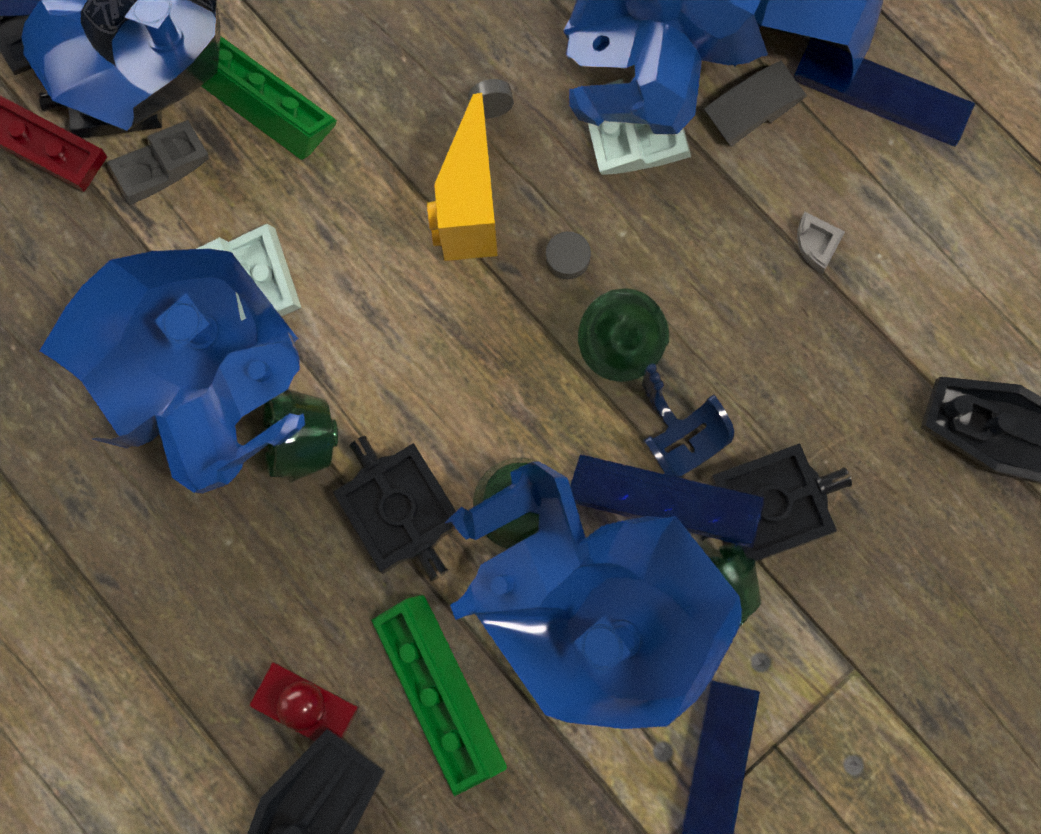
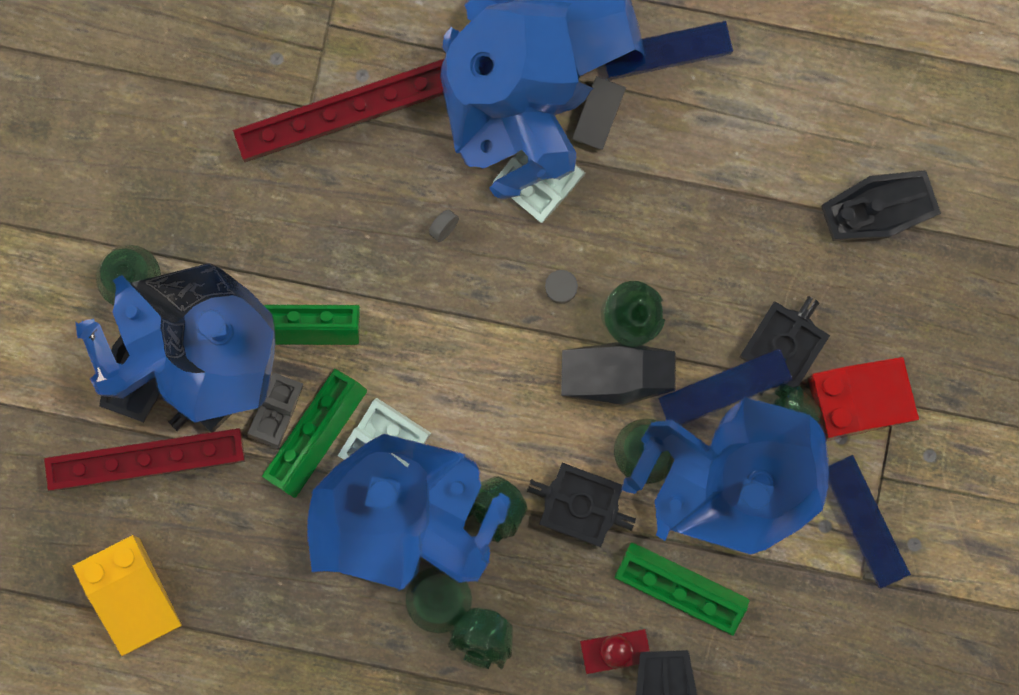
camera: 40 degrees left, 5 degrees up
(149, 498) = (437, 600): none -> clear green cone
(164, 569) = (483, 637): none -> clear green cone
(181, 216) = (315, 433): none -> green slope
(463, 206) = (486, 302): yellow slope -> none
(555, 392) = (617, 373): none -> black piece
(706, 444) = (722, 339): dark blue helmet -> none
(817, 241) = (696, 171): light grey tile -> none
(822, 634) = (863, 398): none -> red slope

